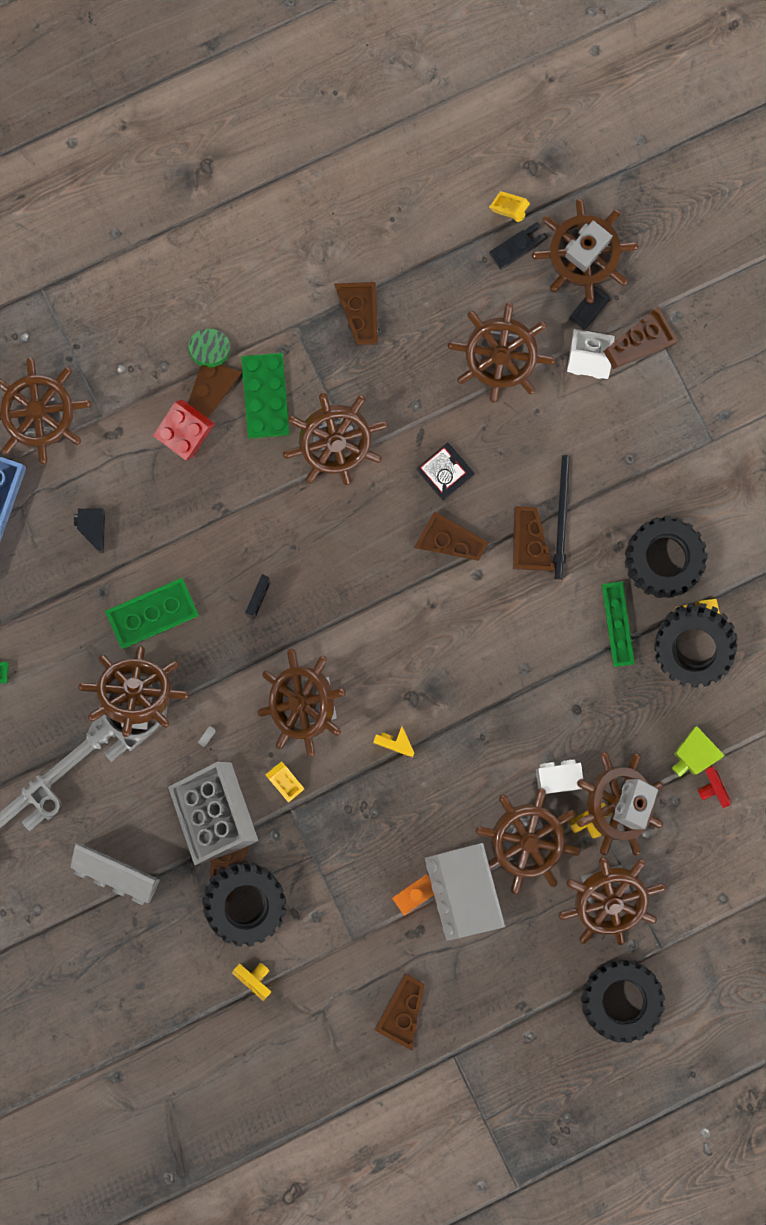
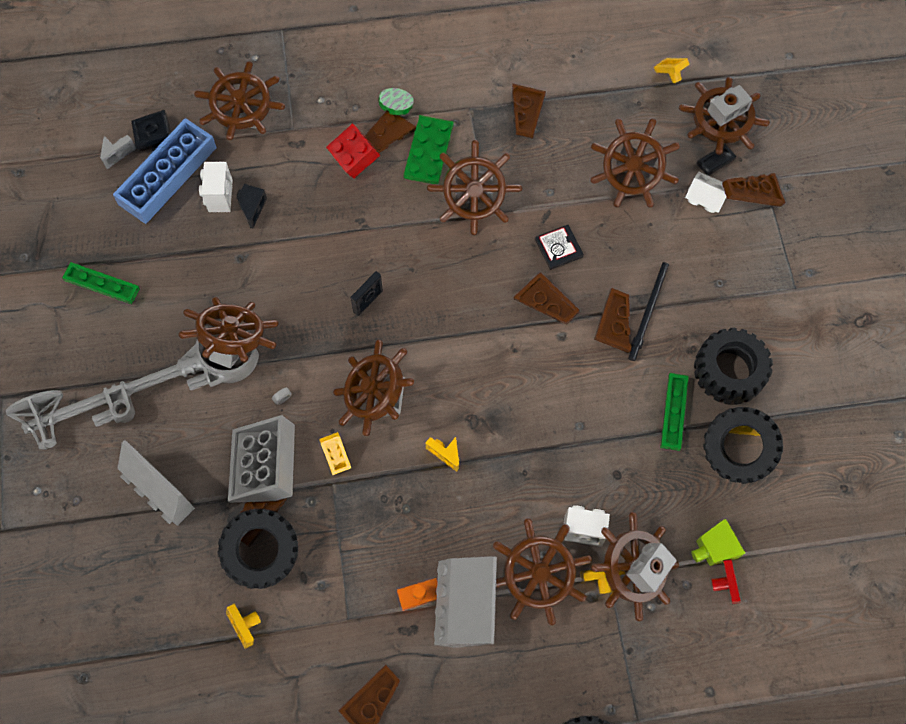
camera: 20 degrees right, 15 degrees down
(49, 522) = (216, 186): none -> white brick
(152, 613) = (273, 284): green plate -> none
(516, 246) = (668, 99): black hinge -> none
(609, 892) = (603, 644): reddish brown brick -> none

